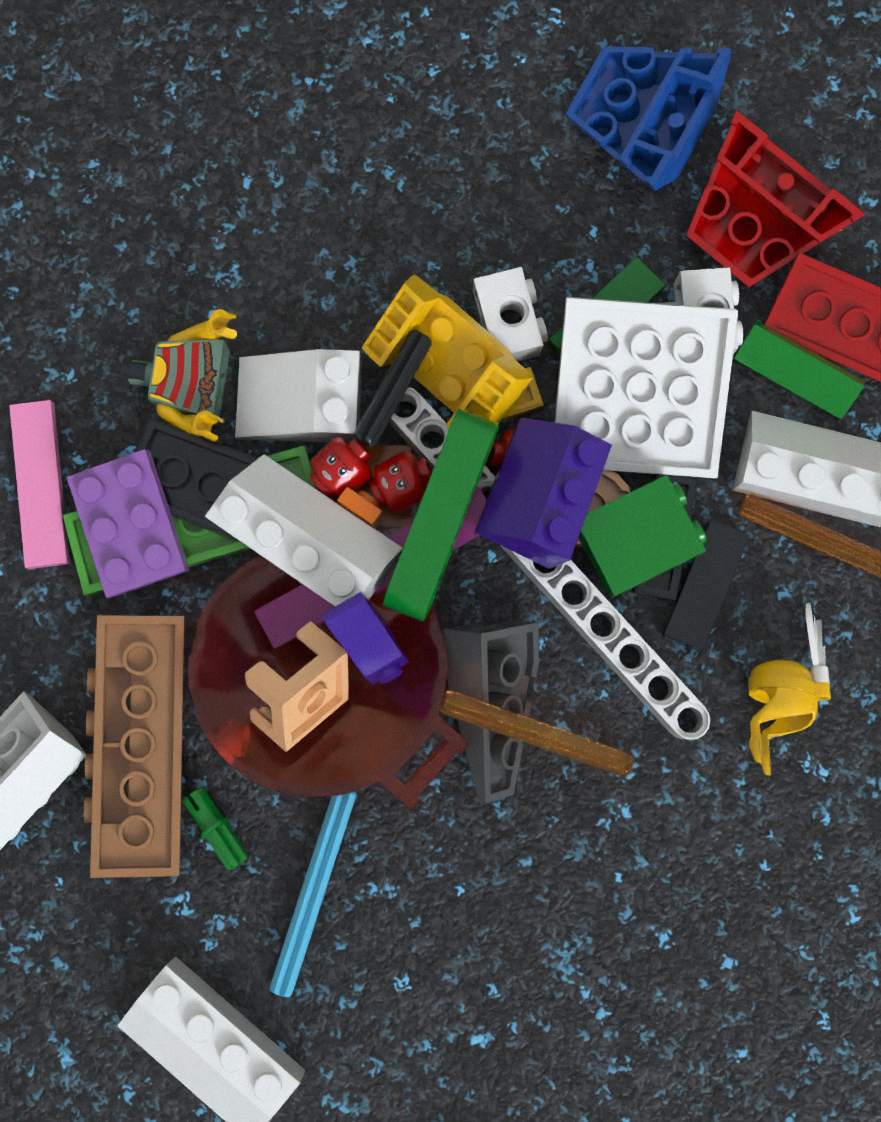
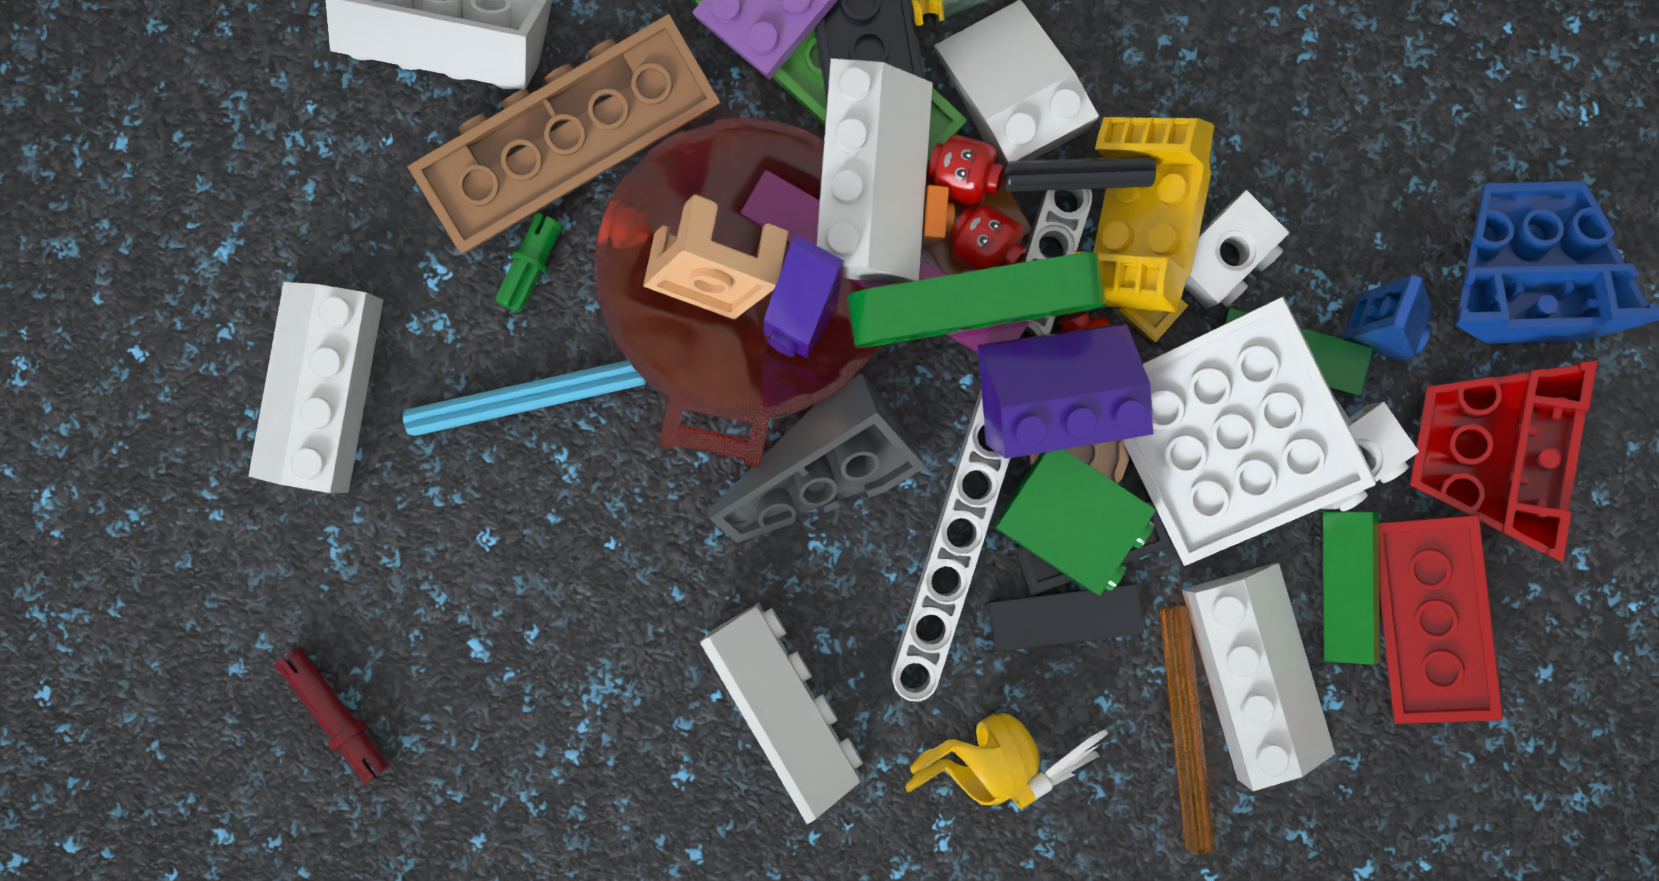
camera: 60 degrees right, 5 degrees up
(535, 733) = (809, 527): clear orange axle -> none
(624, 232) = (1392, 319): none -> blue slope
(658, 832) = (783, 711): none -> white slope

